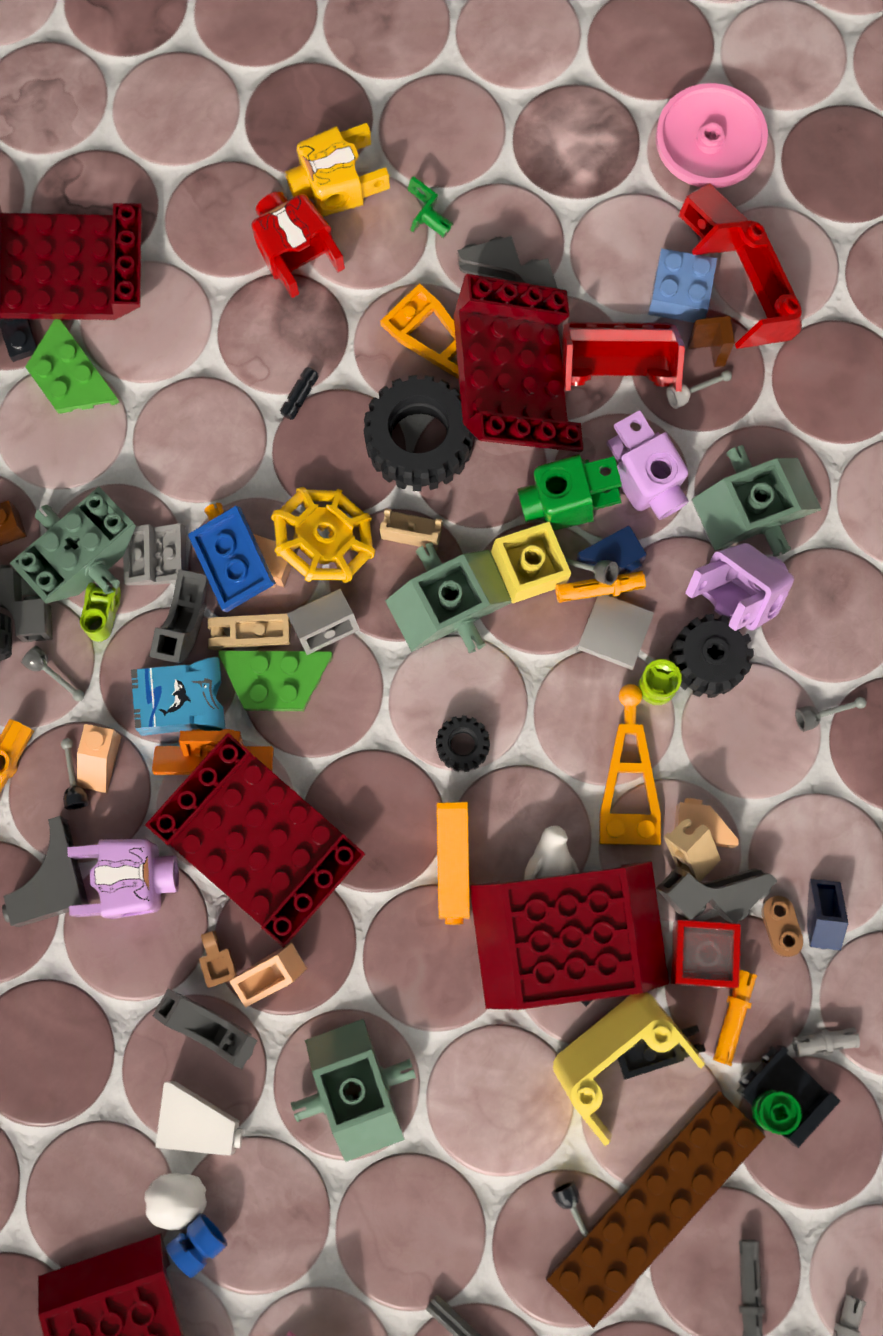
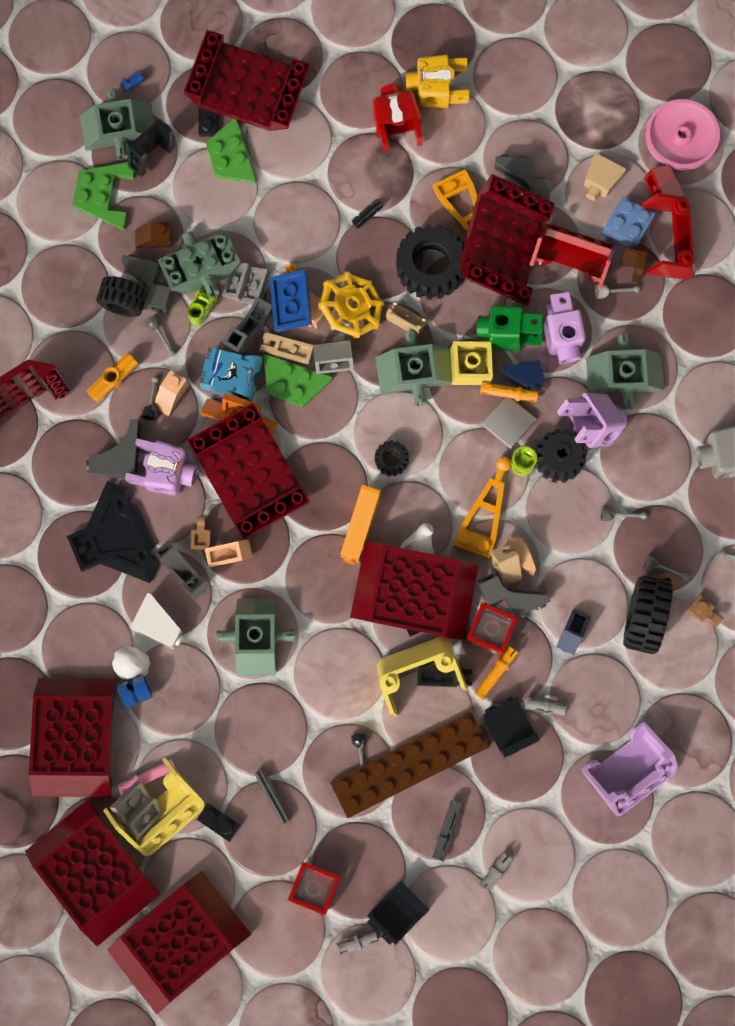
camera: 20 degrees right, 0 degrees up
(85, 1008) = (115, 537): none -> black plate
(428, 214) = (486, 127): green bracket -> none
(604, 570) = (514, 387): dark grey hinge -> none
(619, 231) = (602, 177): none -> tan torso
(776, 1112) = (499, 733): green wheel -> none
(781, 926) = (545, 630): medium nougat plate -> none

